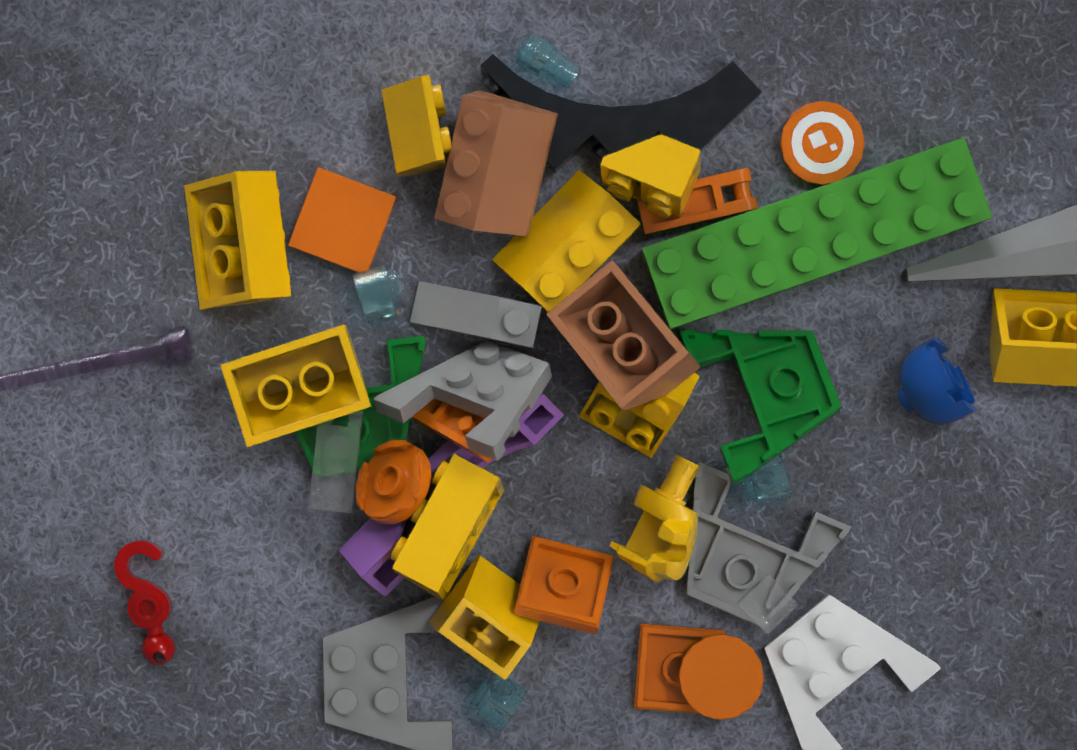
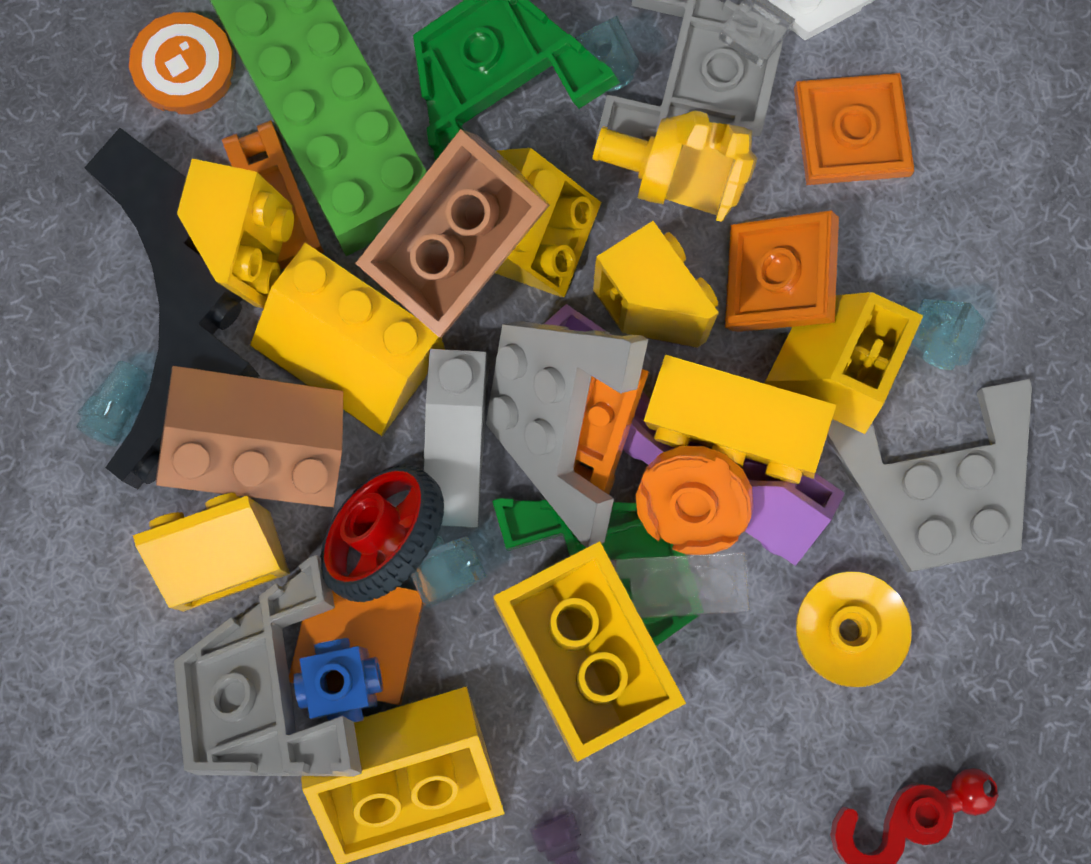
camera: 95 degrees left, 10 degrees down
(264, 588) = (881, 621): none -> yellow dish
(312, 132) = (239, 696): none -> light grey wing
(318, 216) = (361, 681): none -> blue brick
(407, 253) = (388, 537): none -> wheel
(562, 479) = (653, 290): none -> yellow slope
(720, 676) = (855, 71): orange tile -> none

